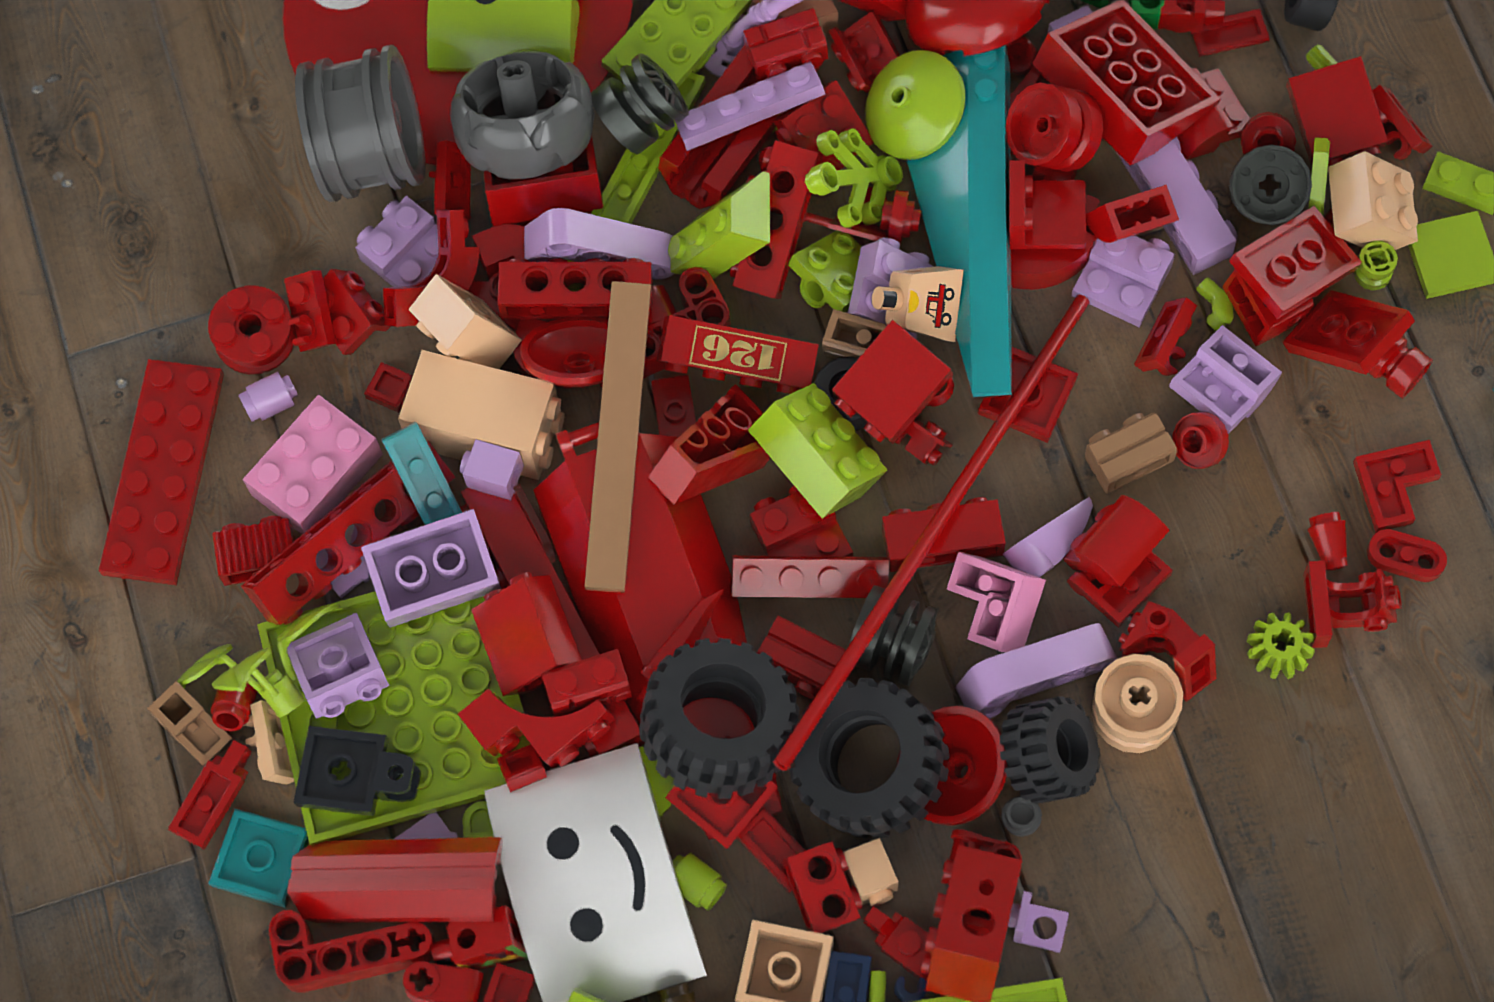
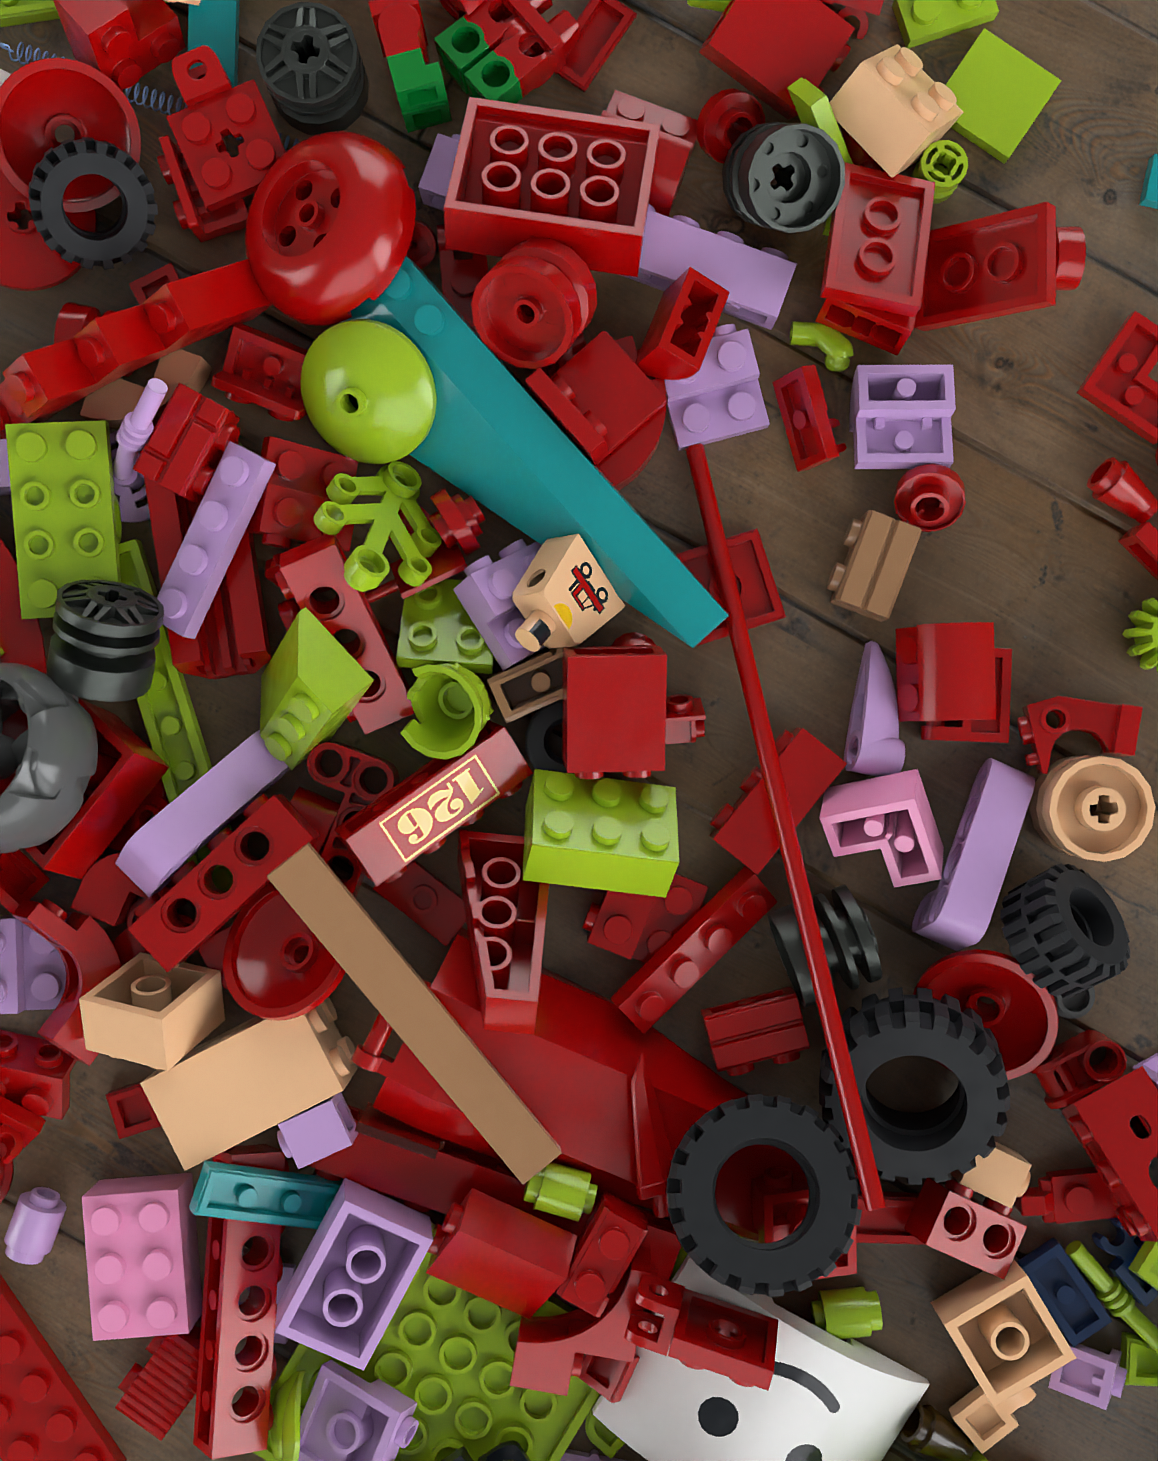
camera: 50 degrees left, 20 degrees up
(596, 628) = (561, 1191): none -> lime brick
(603, 757) = (704, 1332): none -> red plate
(798, 305) = (450, 707): none -> lime helmet

